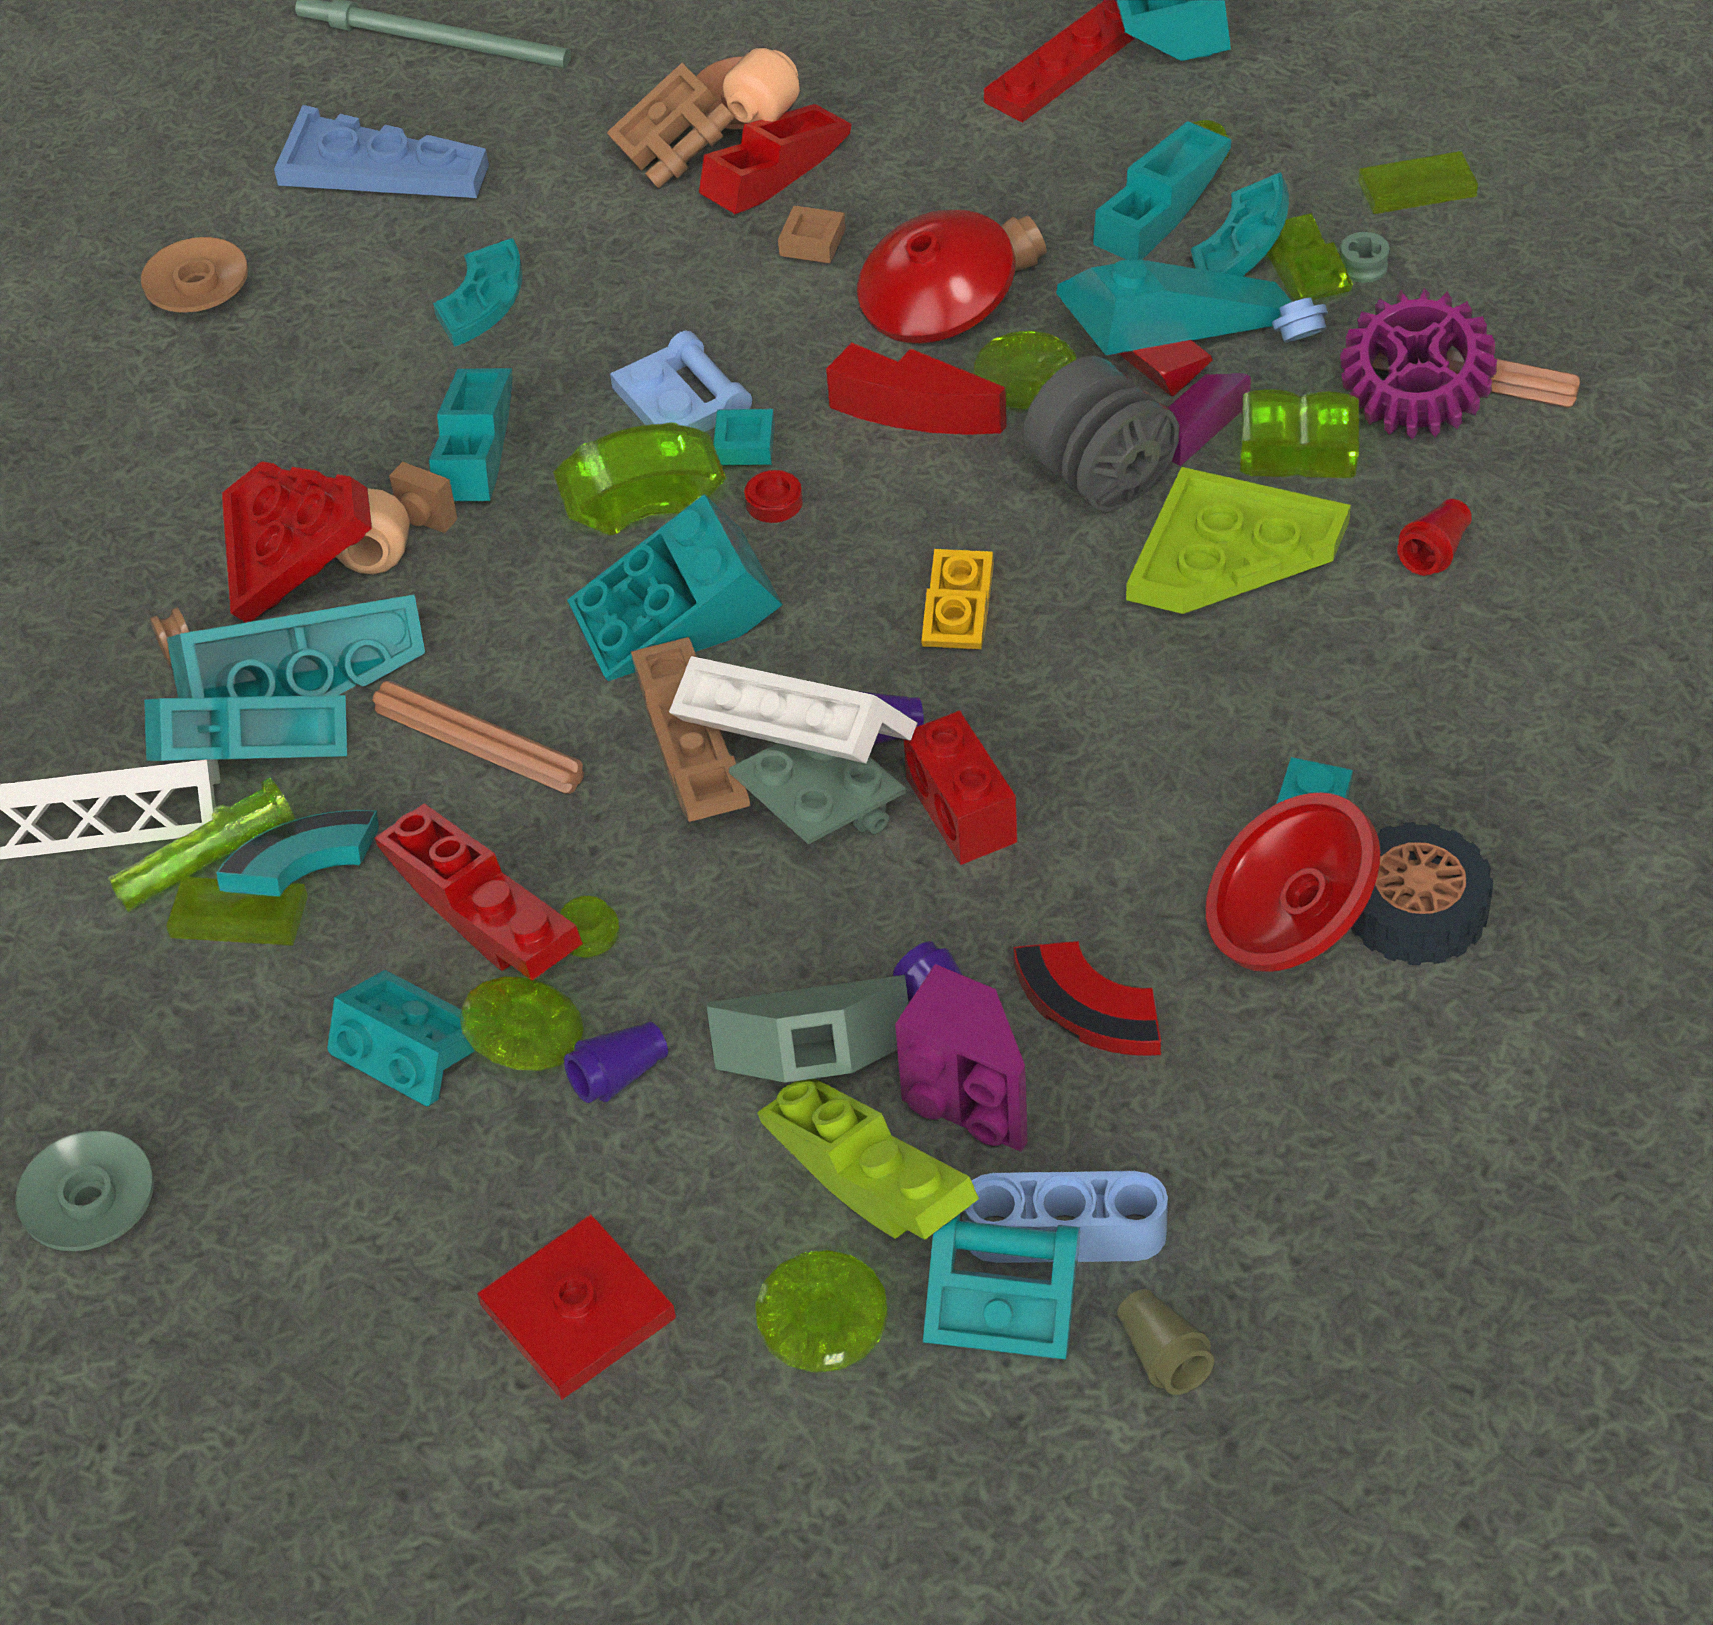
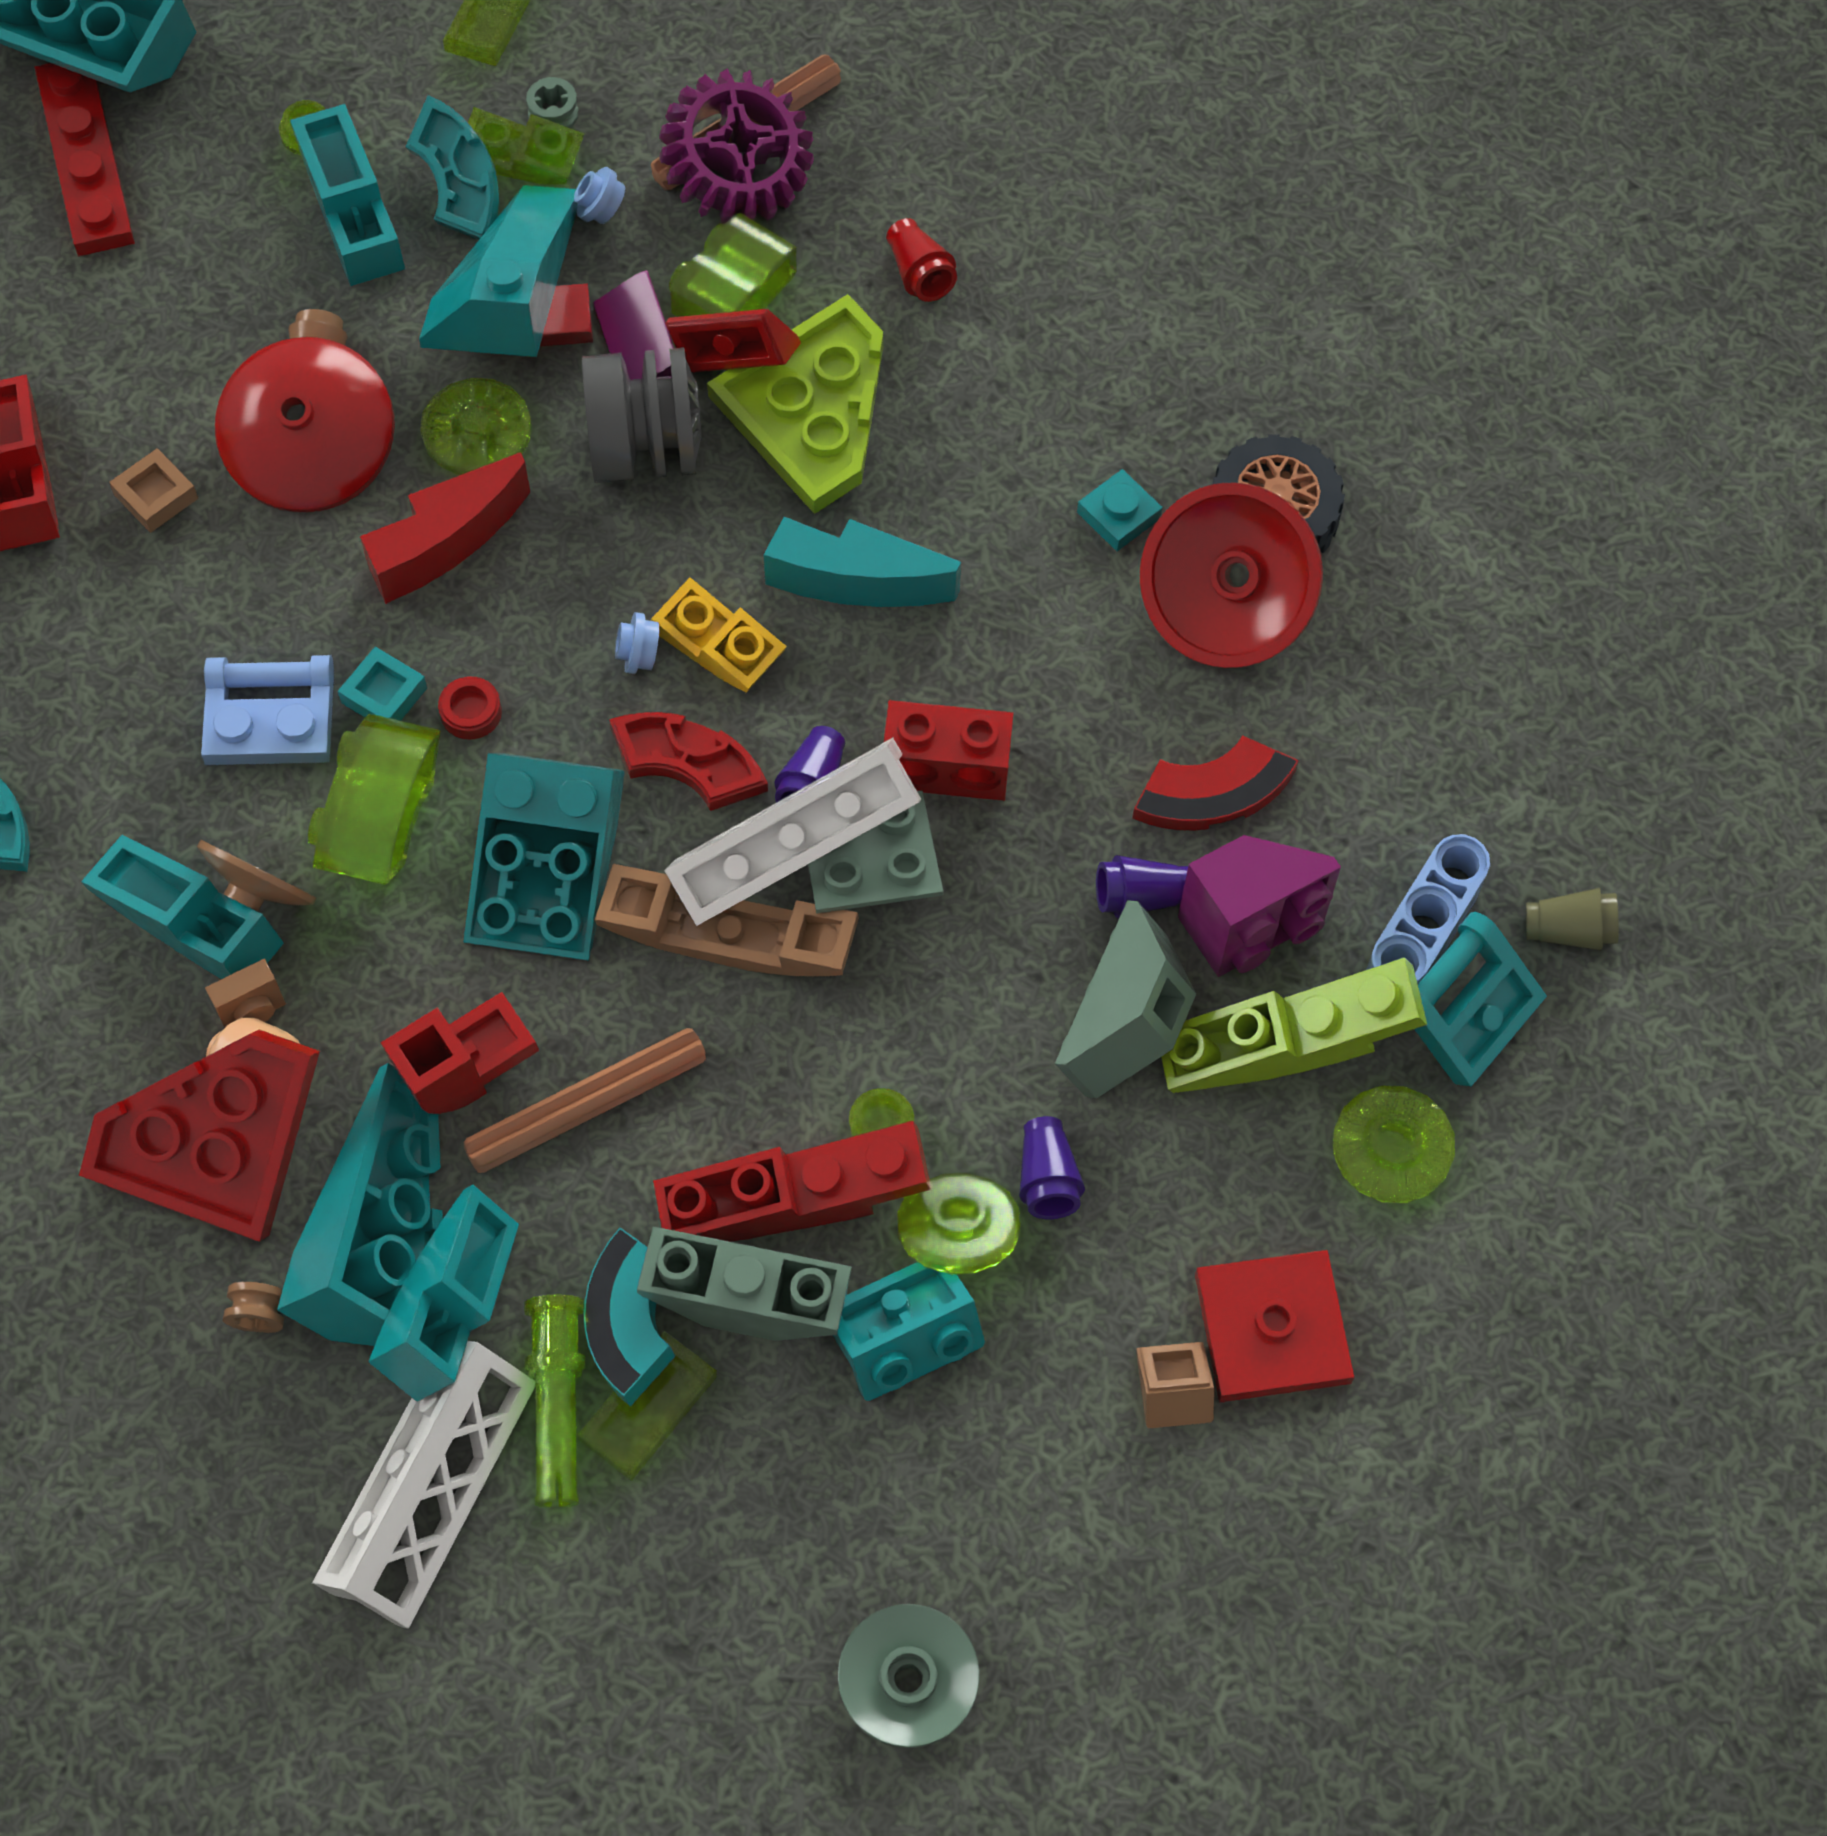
camera: 65 degrees left, 15 degrees up
(358, 891) = (743, 1286): none -> sand green slope
(438, 633) = (453, 1061): none -> red brick
(470, 1258) = (1175, 1385): none -> medium nougat slope
(516, 440) = (250, 884): none -> medium nougat dish
(836, 636) = (689, 753): none -> red tile
(905, 553) = (637, 643): none -> light blue plate
(1090, 645) = (858, 567): none -> teal slope
(1226, 452) = (733, 340): none -> red slope

